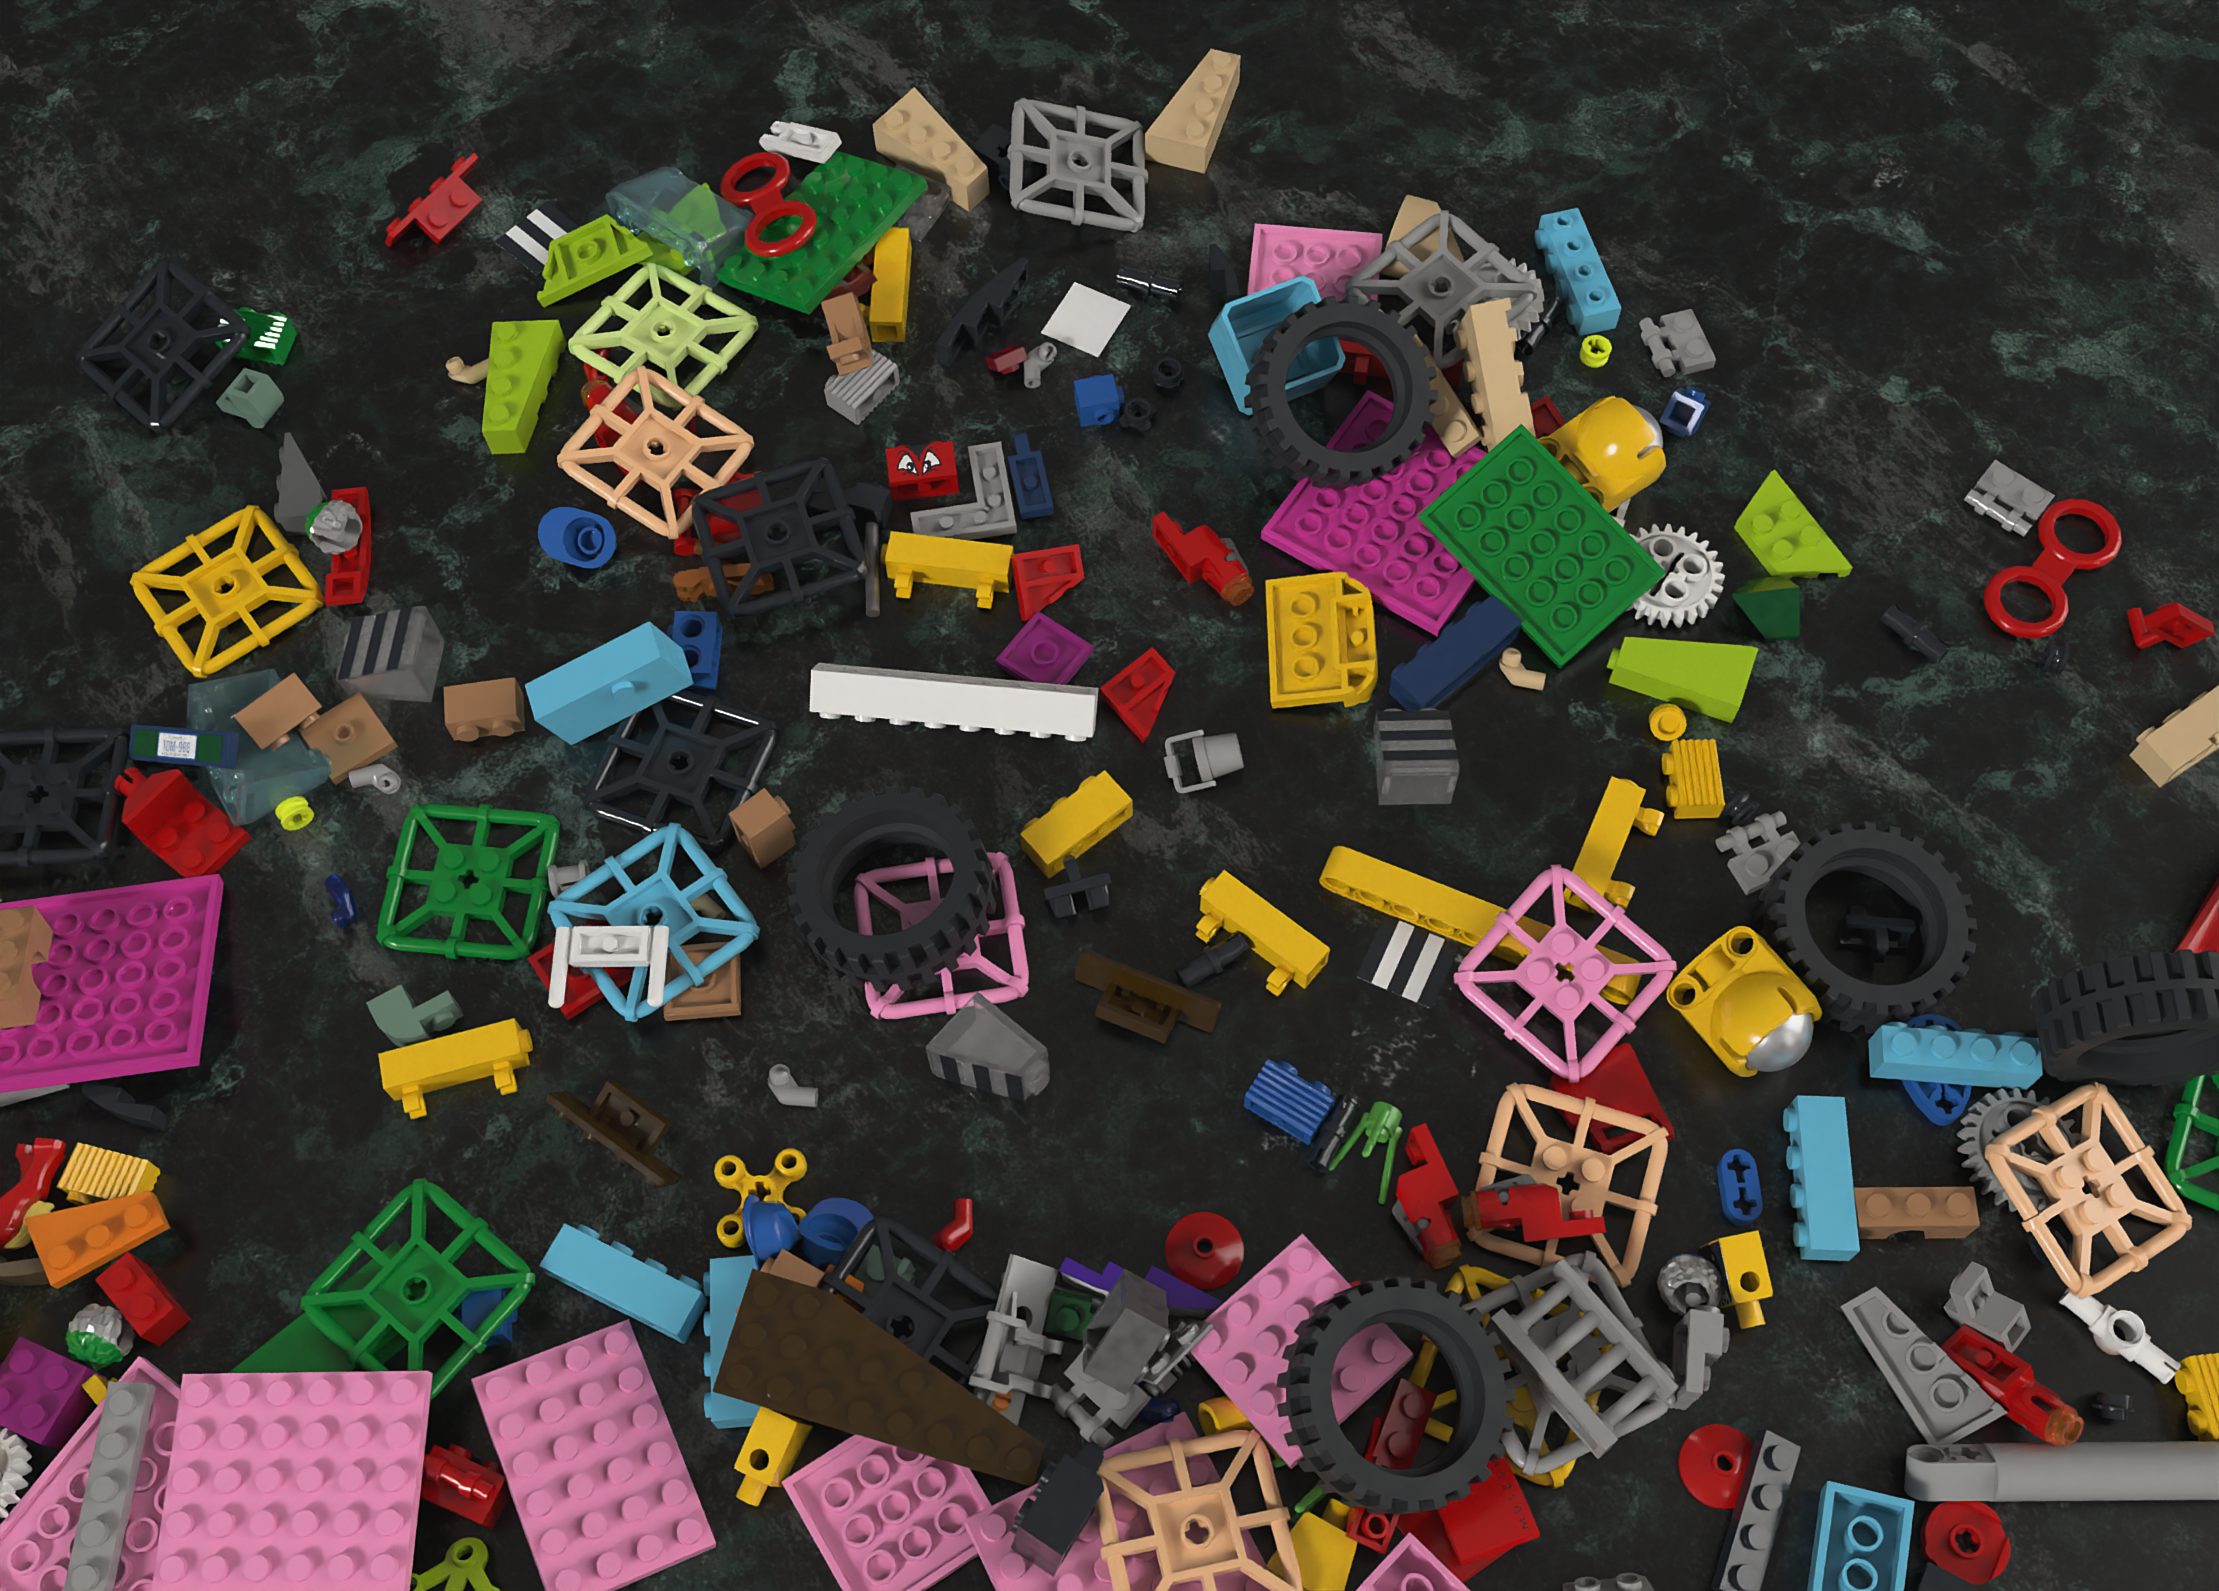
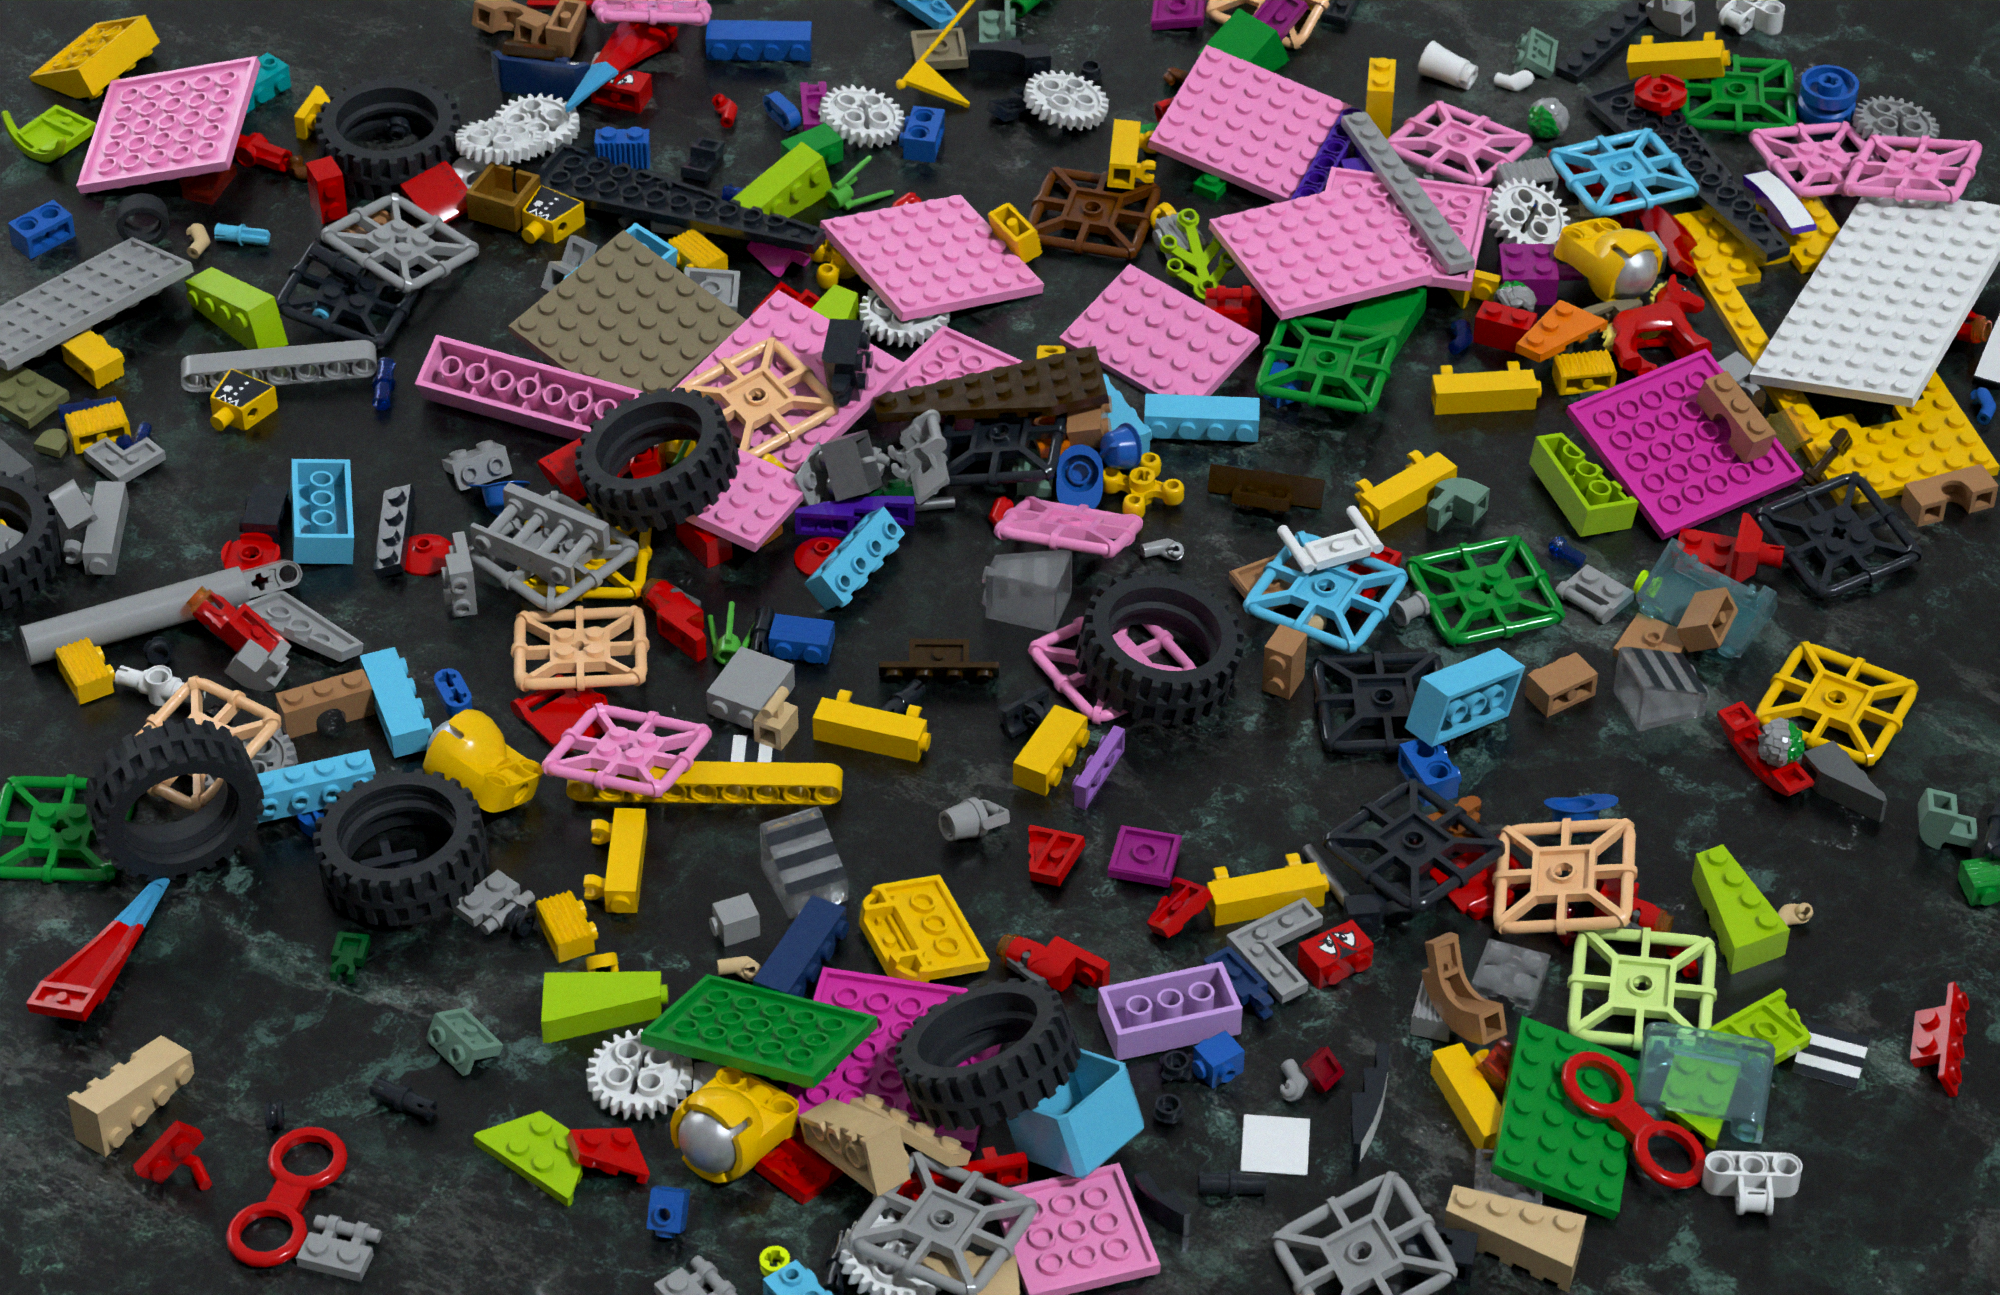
camera: 155 degrees right, 20 degrees down
(183, 746) = (1756, 577): tile -> none
(192, 1331) = (1464, 336): none -> clear blue arm
(248, 1194) = (1484, 390): none -> yellow brick
(260, 975) = (1579, 487): none -> lime wedge
(344, 834) = (1595, 593): none -> light grey plate
(377, 775) = (1606, 629): light grey arm -> none
(701, 136) = (1752, 1178): none -> white piece
(769, 401) = (1510, 975): none -> clear brick
(801, 141) = (1651, 1195): white hinge -> none
(920, 1121) = (1068, 527): none -> bright pink plate
(954, 701) = (1195, 792): white brick -> none
(1035, 782) = (1098, 767): none -> medium lavender plate
(1119, 453) = (1169, 1010): none -> lavender brick
(1175, 1199) = (854, 559): none -> medium azure brick
(1368, 977) = (776, 721): none -> tan brick
(1380, 1042) = (747, 686): none -> light grey brick
(1509, 723) = (735, 920): none -> light grey brick
(1528, 1205) = (598, 609): red plate -> none
(1599, 1528) = (494, 494): none -> blue piece
(1689, 1282) = (474, 617): light grey piece -> none
(1722, 500) = (609, 1150): none -> red wing
(1741, 1260) = (442, 624): yellow torso -> none
(1771, 606) = (545, 1082): dark green slope -> none
(1836, 681) = (462, 1039): none -> sand green bracket
(1941, 830) = (348, 952): none -> dark green plate

